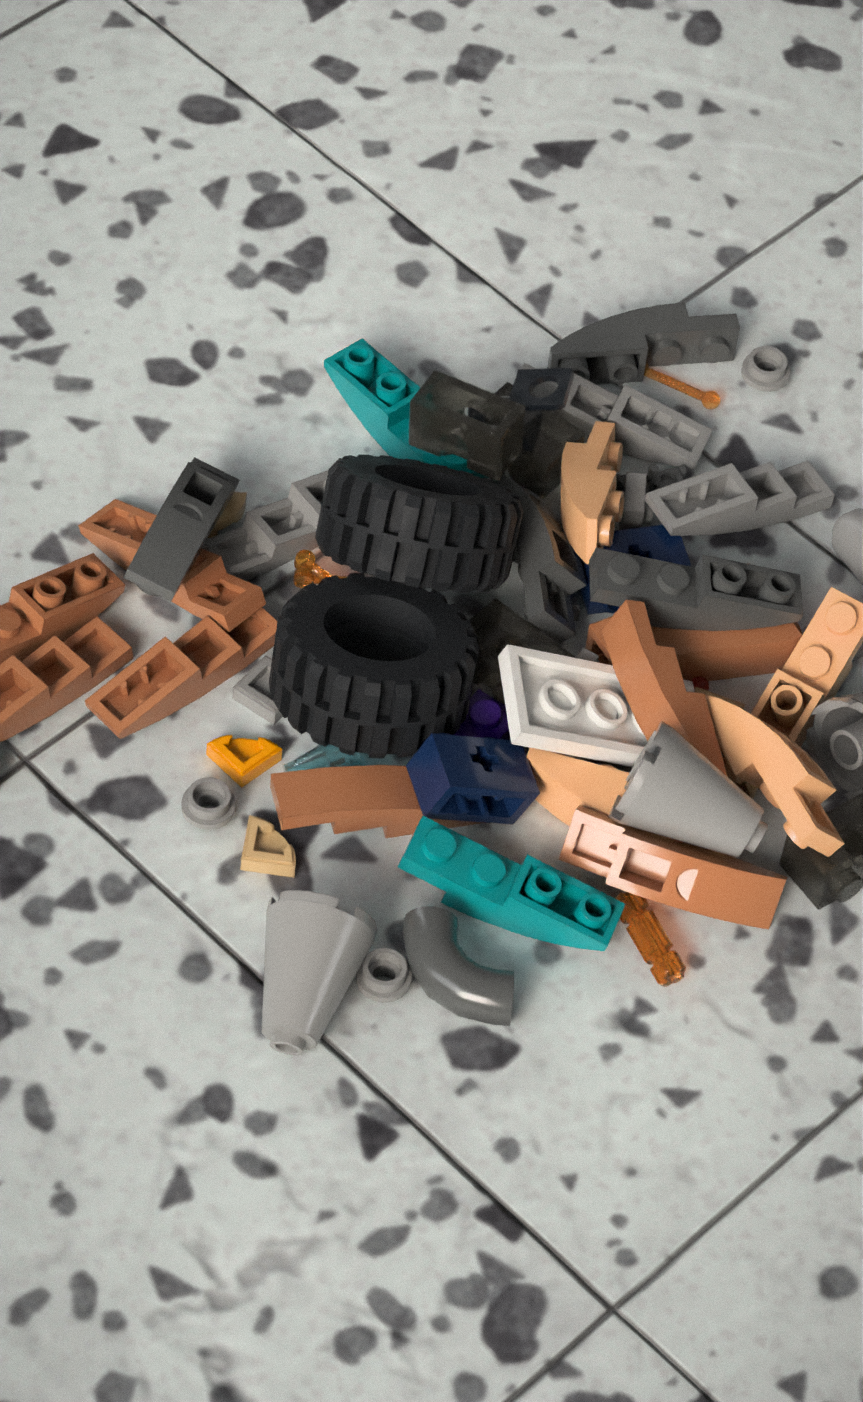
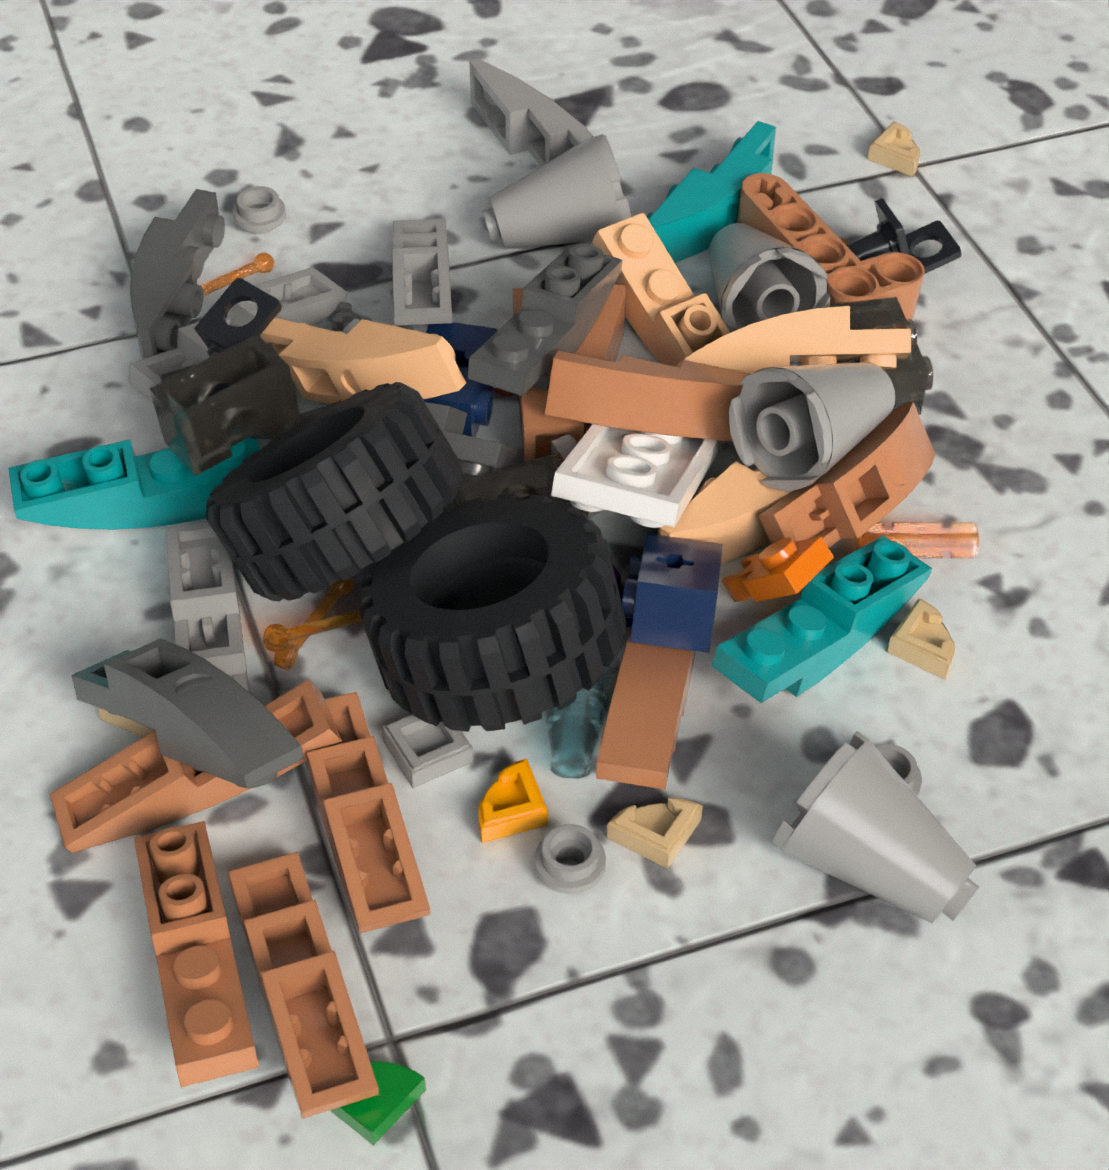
camera: 60 degrees left, 5 degrees down
(449, 974) = (919, 712): dark grey cylinder -> none
(534, 838) = (779, 570): none -> orange plate
(546, 970) = (923, 640): none -> tan tile

